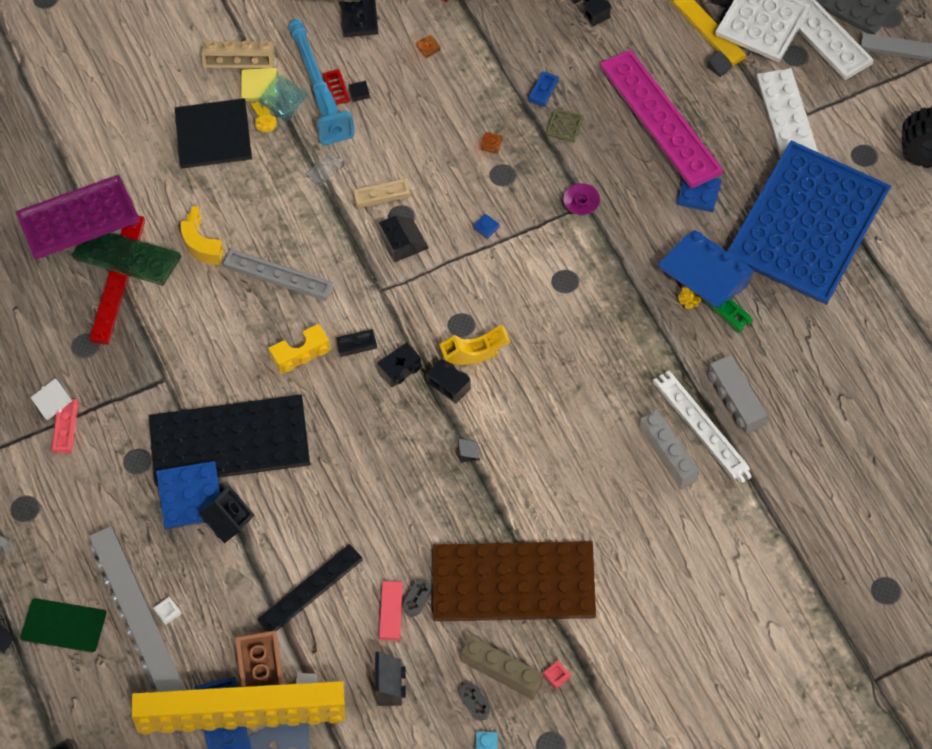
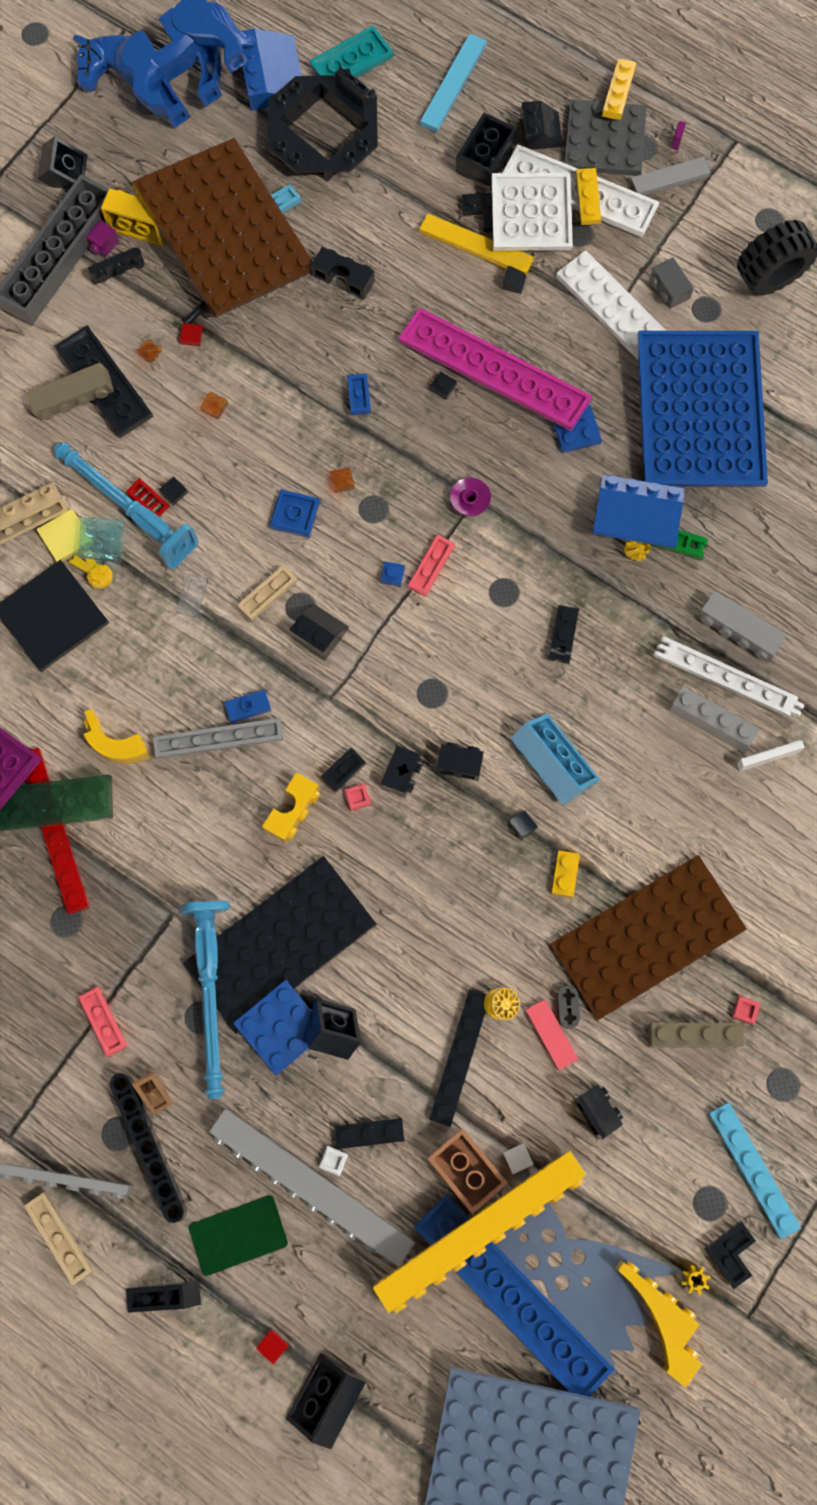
camera: 30 degrees left, 15 degrees up
(36, 714) = (272, 1346): none -> red tile
(40, 534) = (156, 1155): none -> black beam
(51, 399) = (71, 1001): white piece -> none
(68, 489) = (153, 1092): none -> medium nougat slope
(186, 383) = (207, 962): none -> dark azure piece
(206, 606) = (369, 1133): none -> black plate
(315, 264) = (248, 706): none -> blue plate
(355, 368) = (357, 797): none -> coral tile
(366, 565) = (501, 1004): none -> yellow wheel
(440, 149) = (295, 513): none -> blue tile
(476, 350) = (467, 713): yellow arch -> none
(478, 502) = (565, 874): none -> yellow plate
(478, 699) = (691, 1078): dark grey beam -> none
(520, 234) = (431, 565): none -> coral tile
(524, 415) = (554, 758): none -> dark azure slope
(561, 135) = (402, 423): olive window -> none
(591, 332) = (564, 633): none -> black plate
(614, 113) = (443, 385): none -> black plate
(698, 499) = (770, 755): none -> white tile
(816, 30) = (588, 196): none -> yellow plate
(844, 122) = (671, 283): none -> dark grey brick
(922, 19) = (678, 135): none -> magenta tile

